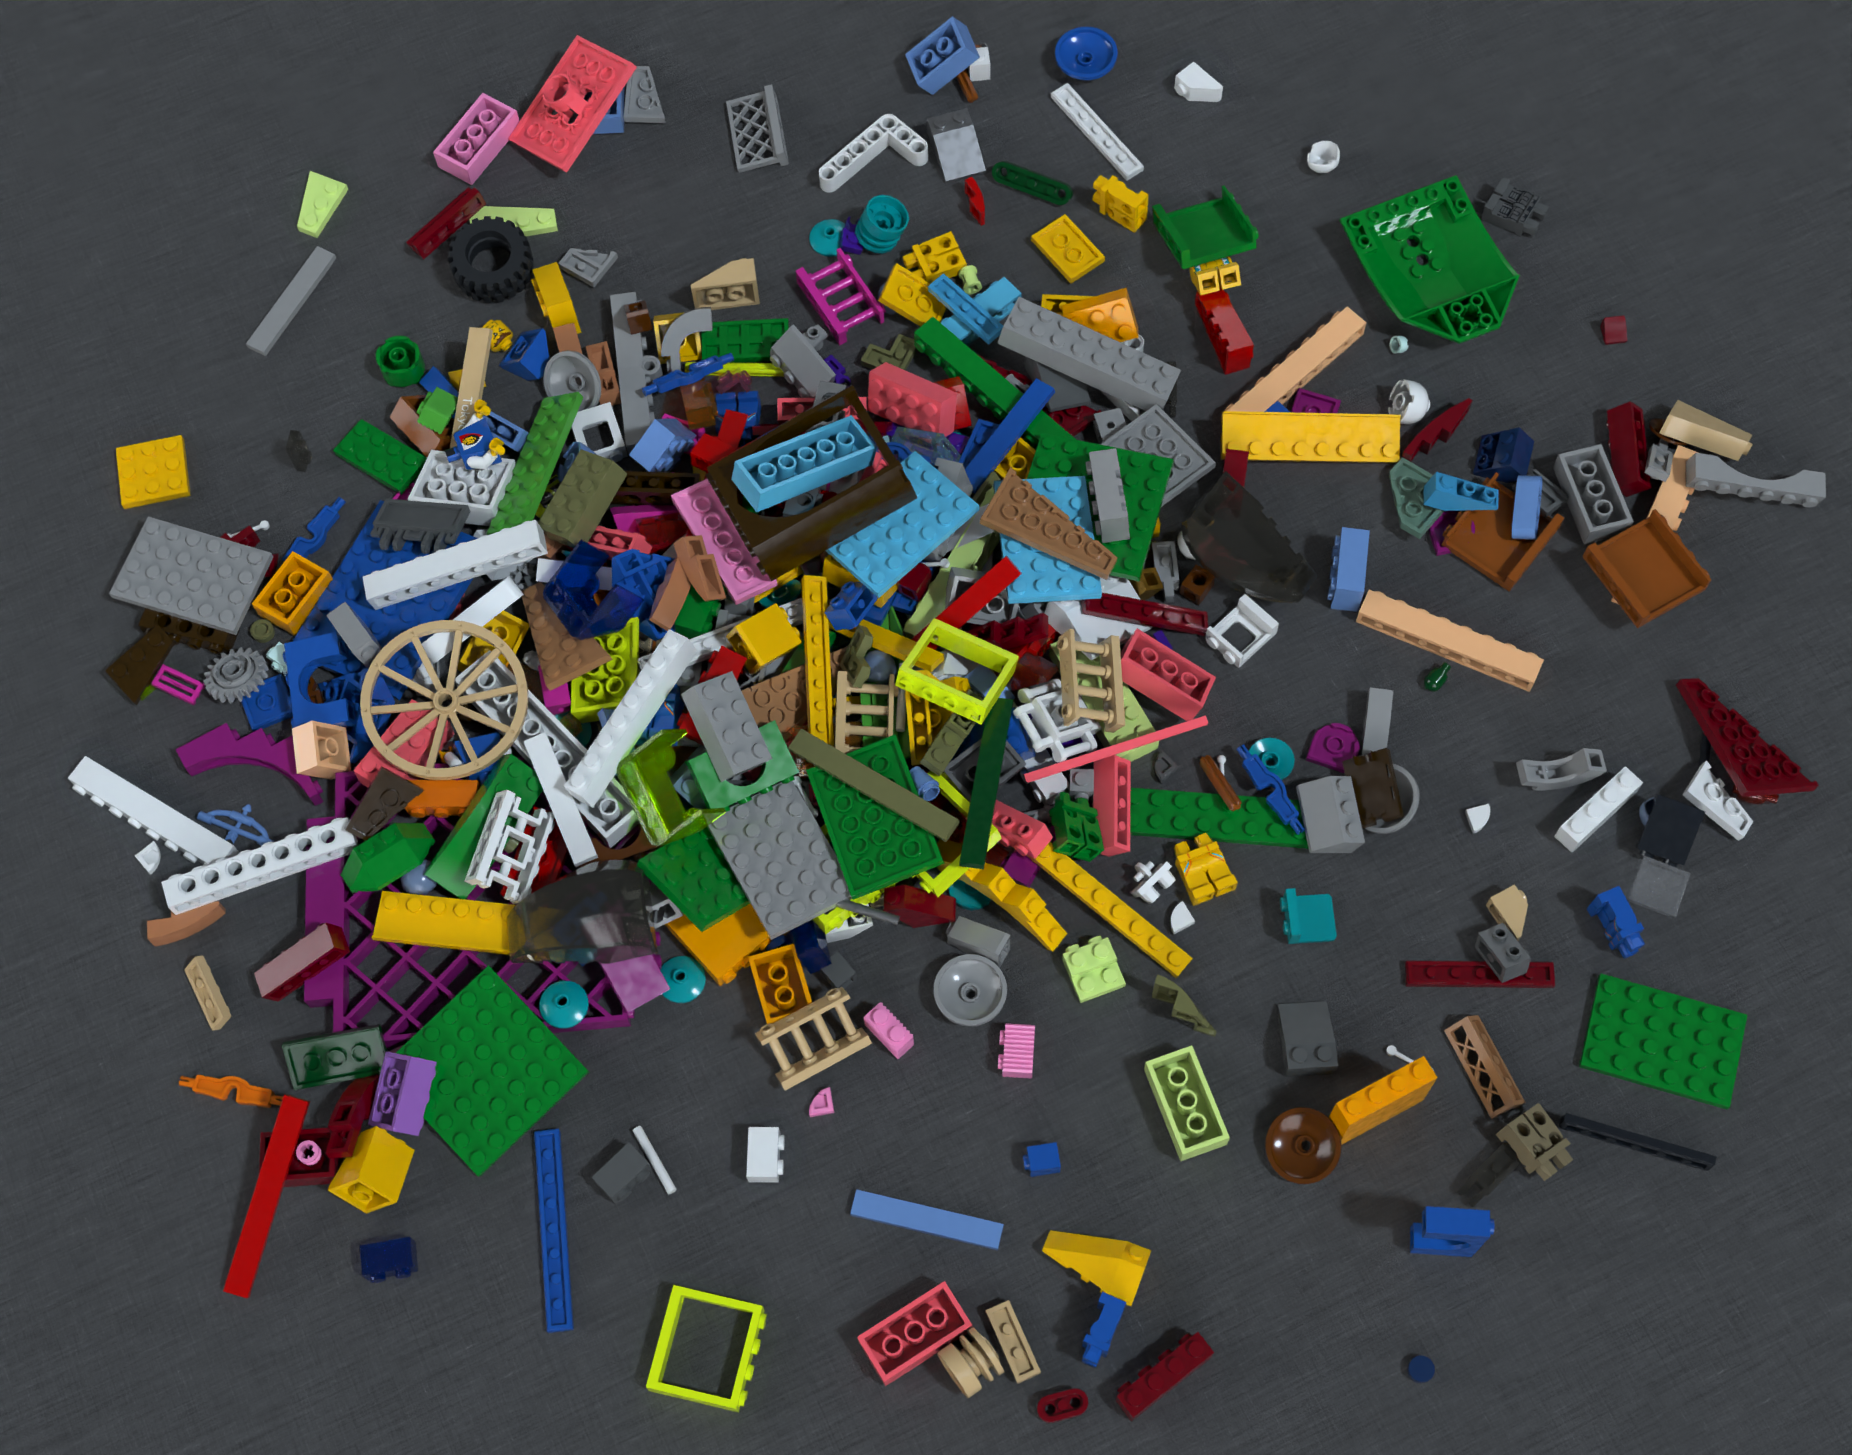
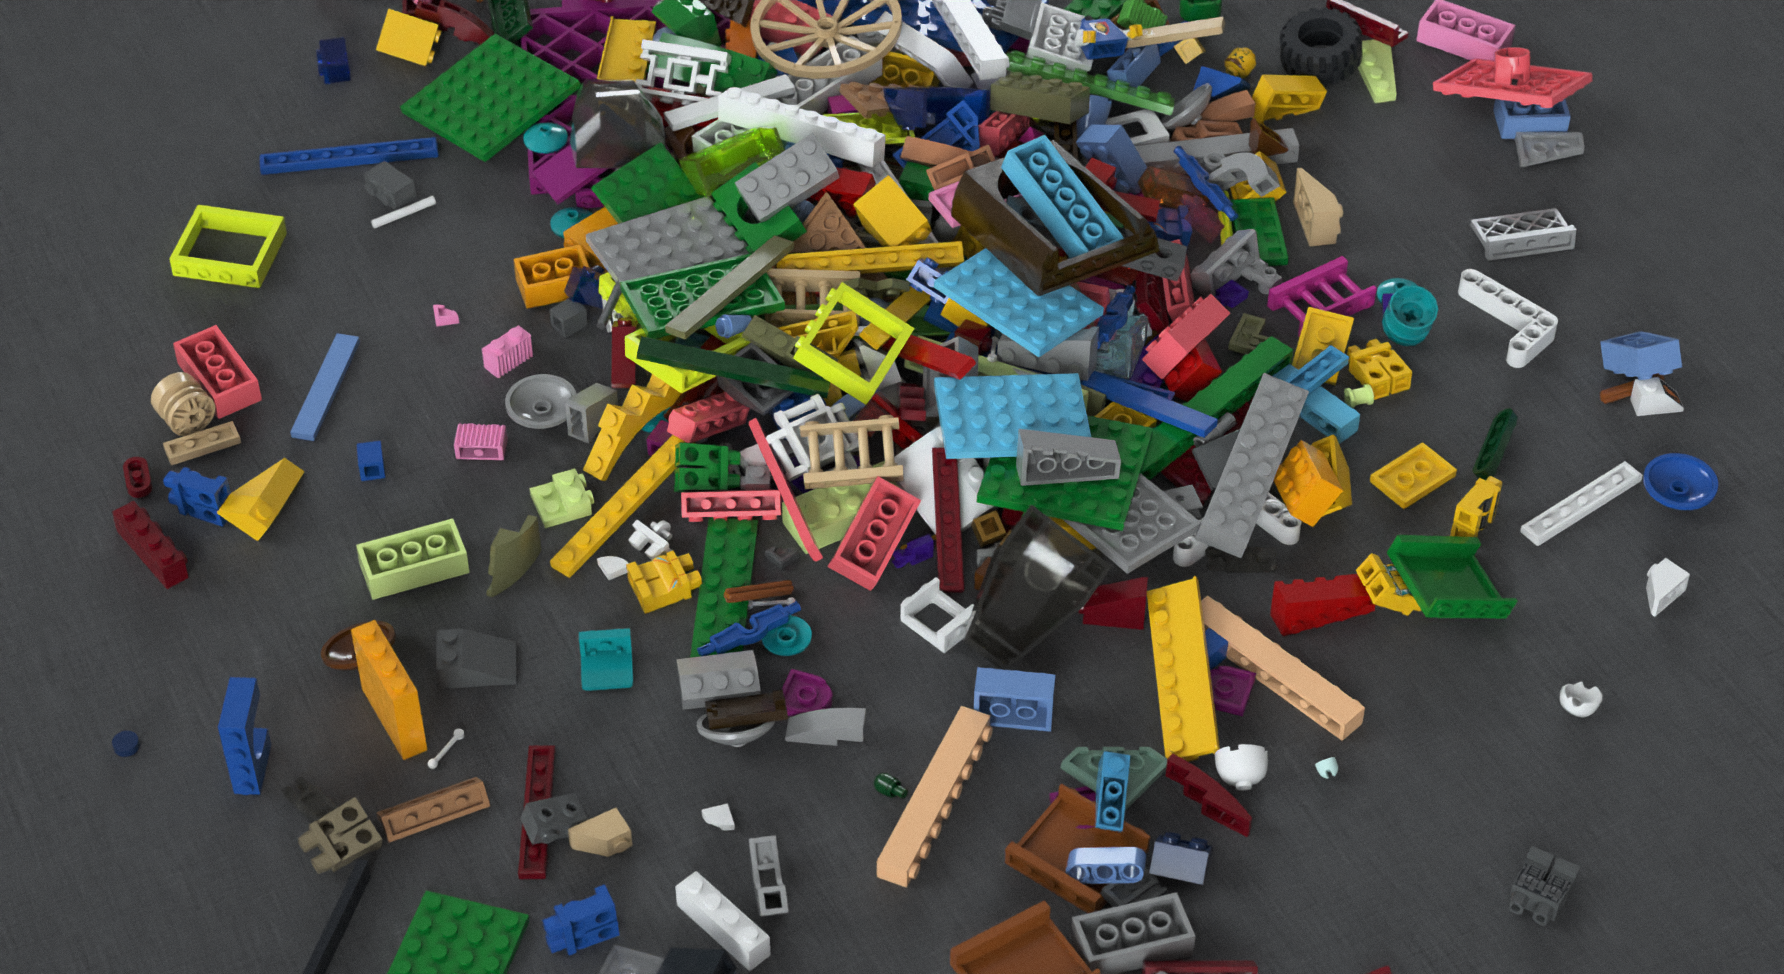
camera: 85 degrees right, 20 degrees down
(402, 1093) = (466, 42): medium lavender slope -> none
(587, 265) = (1333, 120): light grey wing -> none
(764, 1154) = (396, 271): white brick -> none
(833, 1050) = (481, 300): tan fence -> none
(955, 145) = (1534, 381): flat silver slope -> none
(976, 200) = (1458, 401): red slope -> none
(1038, 522) = (1021, 394): medium nougat wing -> none
(1466, 276) = (1394, 786): green wedge -> none

